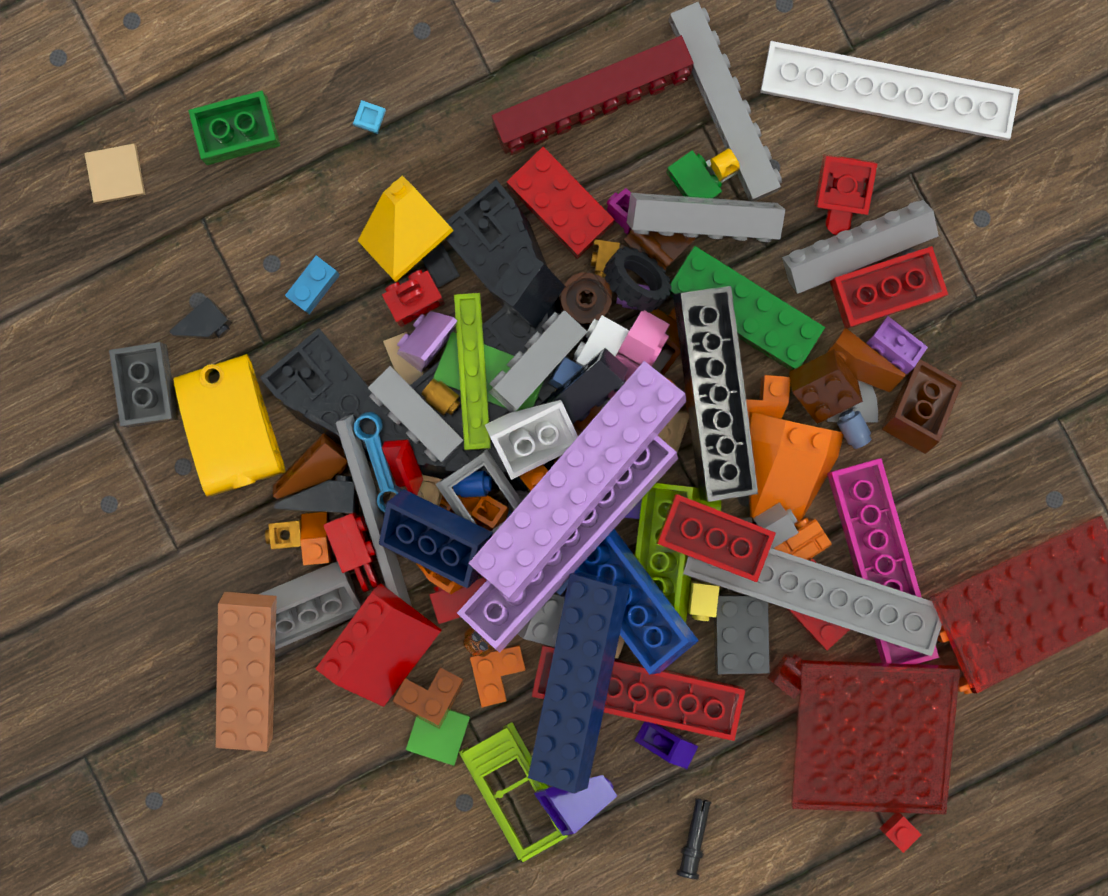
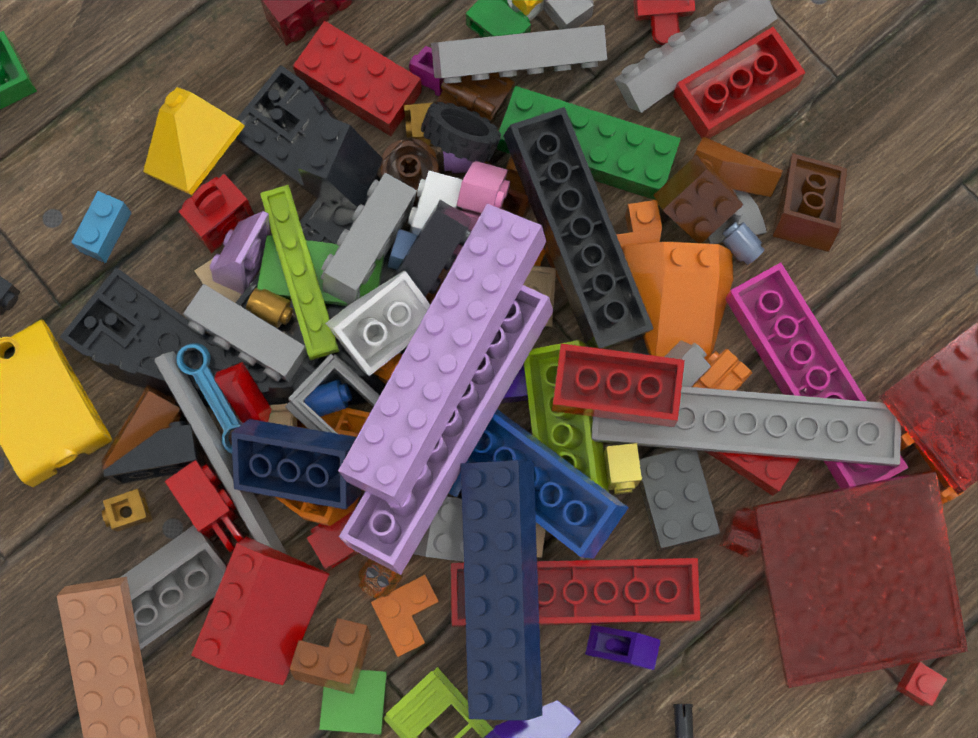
camera: 10 degrees left, 10 degrees down
(314, 540) = (162, 510): orange slope -> none
(369, 117) = (129, 39): medium azure tile -> none
(440, 266) = (239, 172): black tile -> none
(897, 345) = (765, 143): medium lavender bracket -> none

